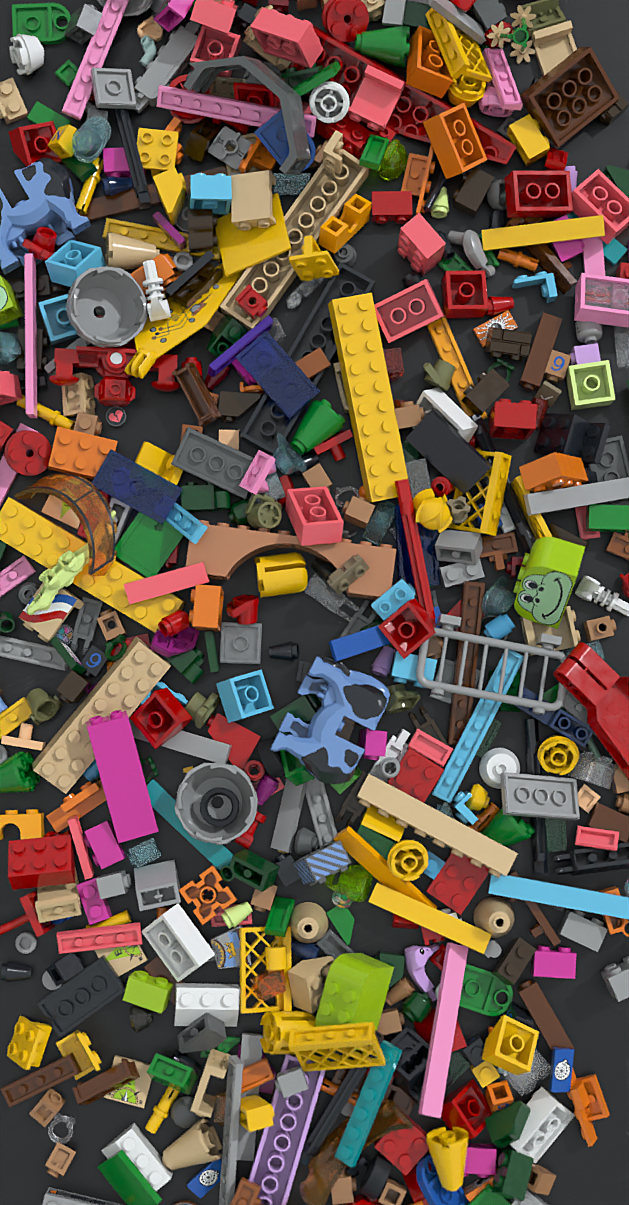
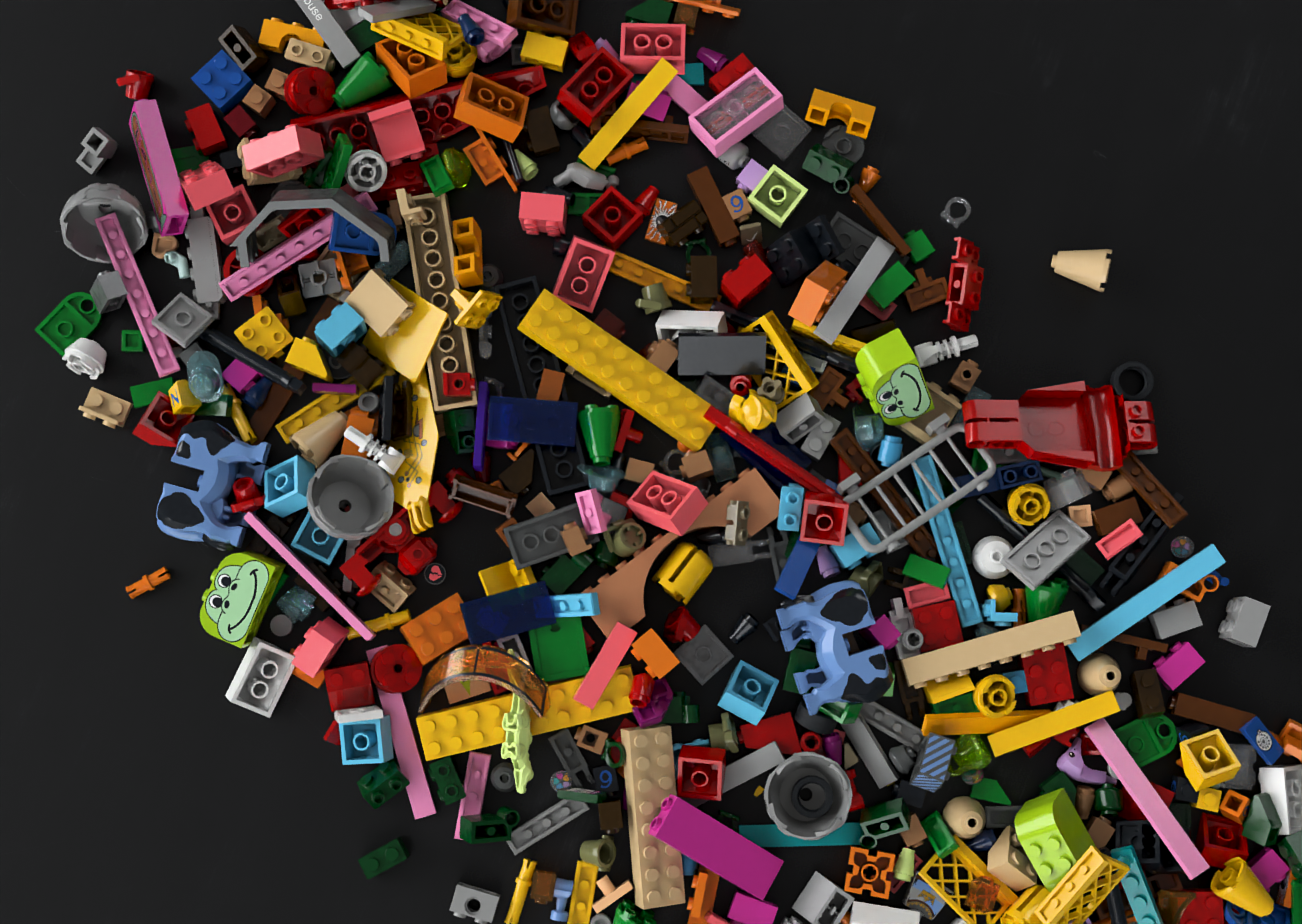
camera: 40 degrees left, 0 degrees up
(49, 621) = (542, 784): panel -> none
(88, 424) = (420, 601): medium nougat brick -> none
(144, 853) = (788, 888): clear light blue brick -> none
(212, 653) = (687, 682): dark green tile -> none
(229, 479) = (575, 538): none -> medium nougat brick
(271, 805) = (849, 756): none -> dark tan slope
(276, 958) = (968, 869): yellow brick -> none
(391, 206) = (489, 204): red brick -> none
(444, 732) = (926, 571): none -> green tile
(491, 78) = (472, 32): none -> dark blue cone
(548, 288) = (671, 151): medium azure bracket -> none

